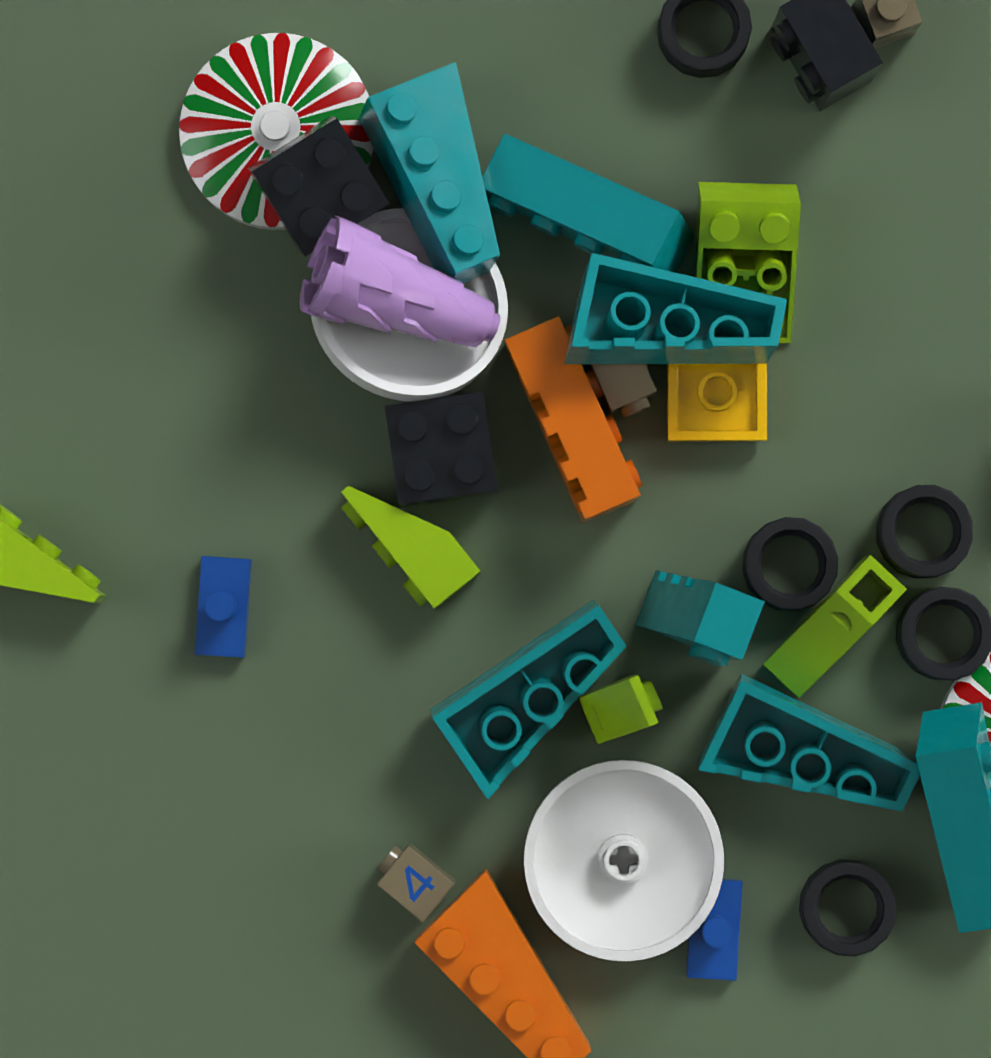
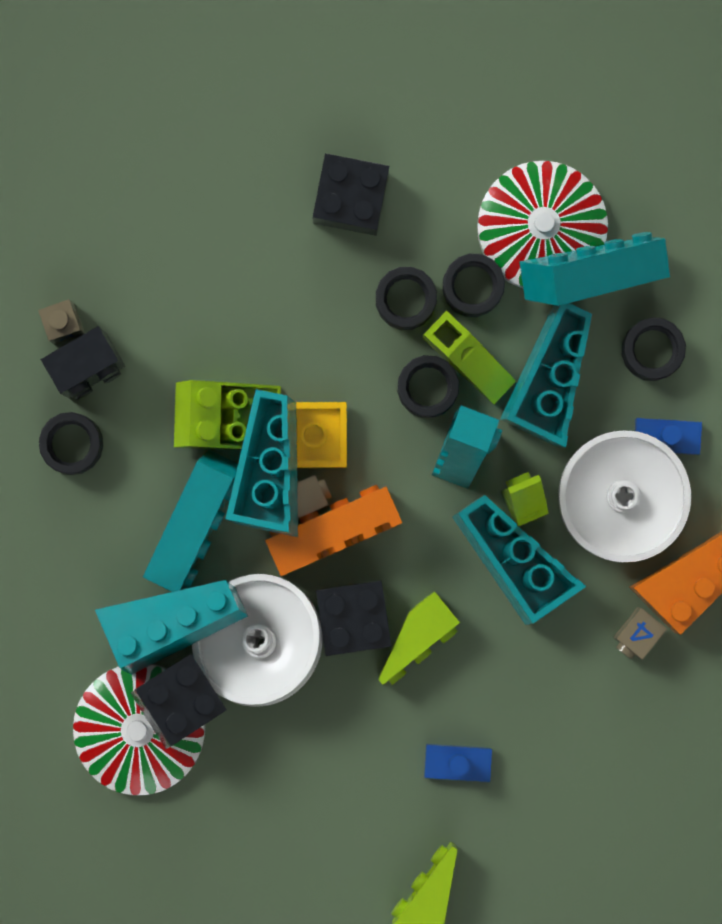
camera: 95 degrees left, 0 degrees up
(387, 289) = (249, 654): lavender cone -> none

